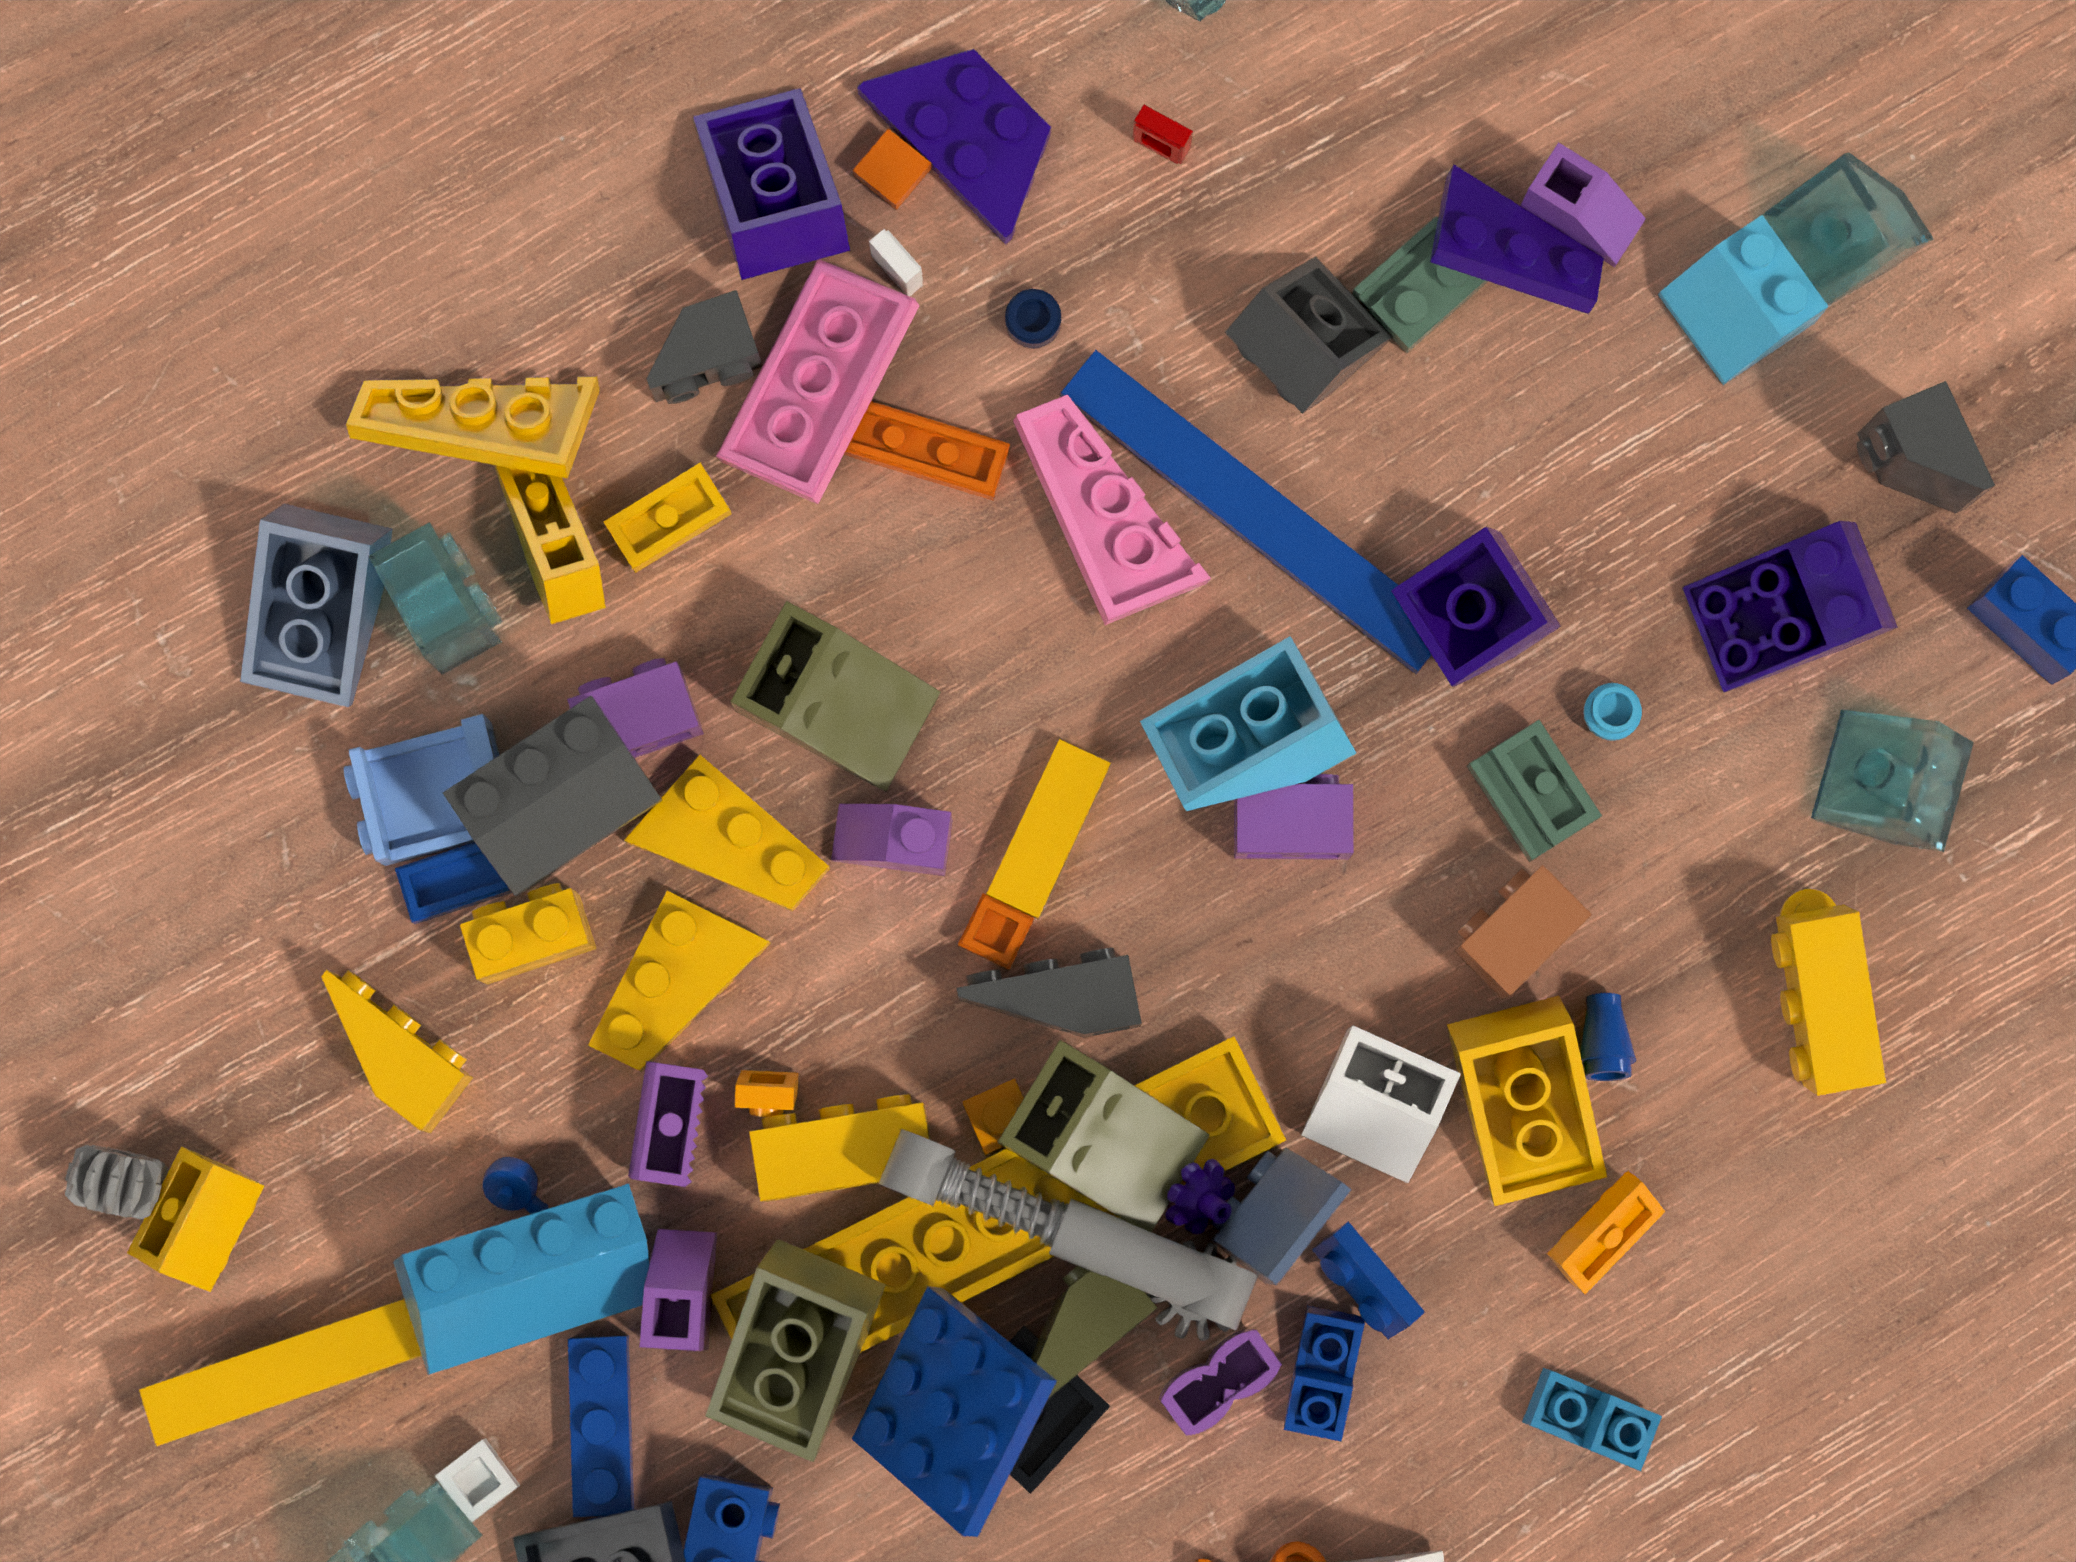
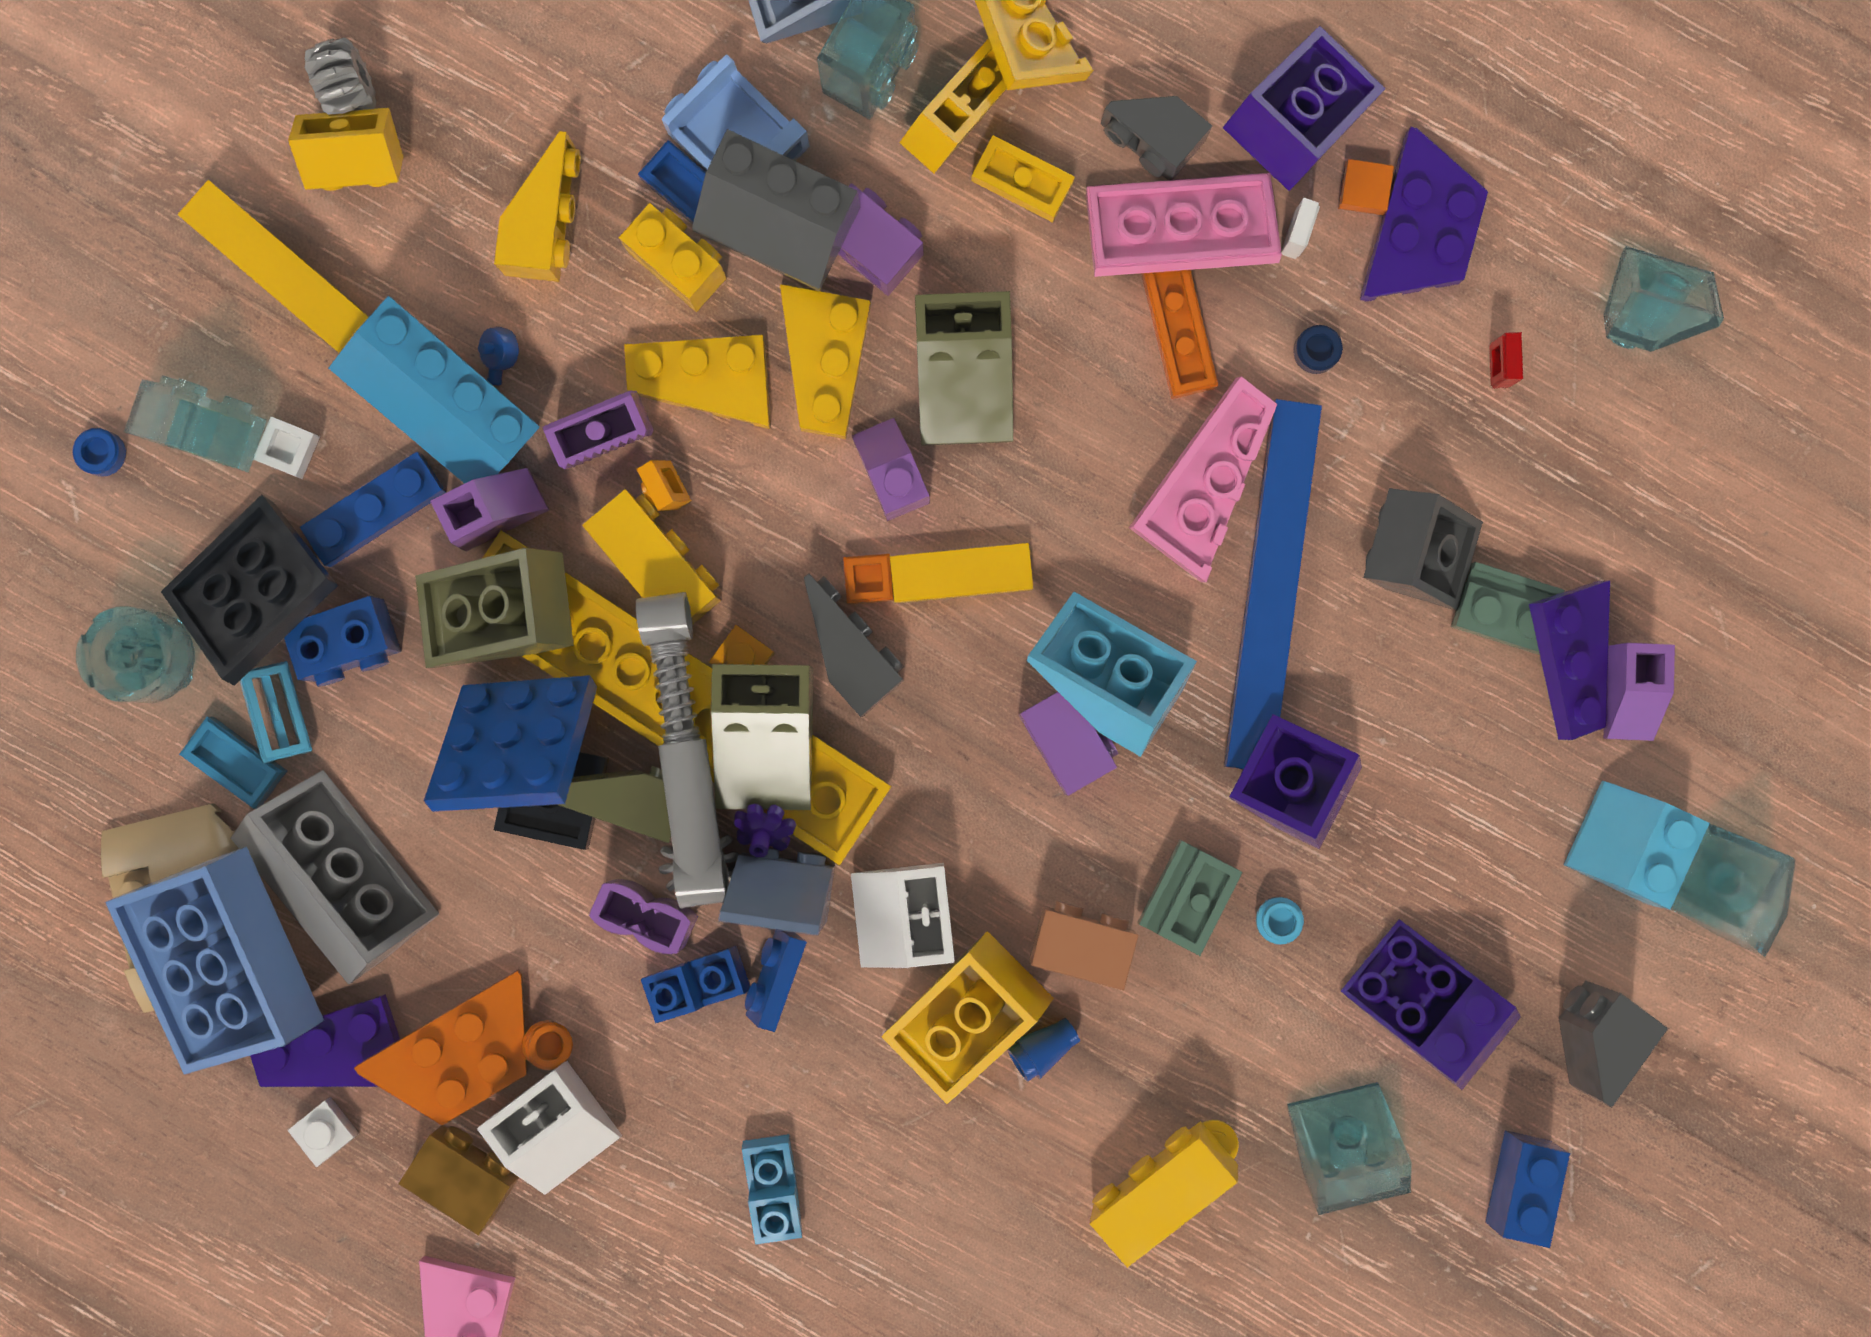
camera: 60 degrees right, 5 degrees up
(1606, 1232) = (907, 1126): light orange plate -> none

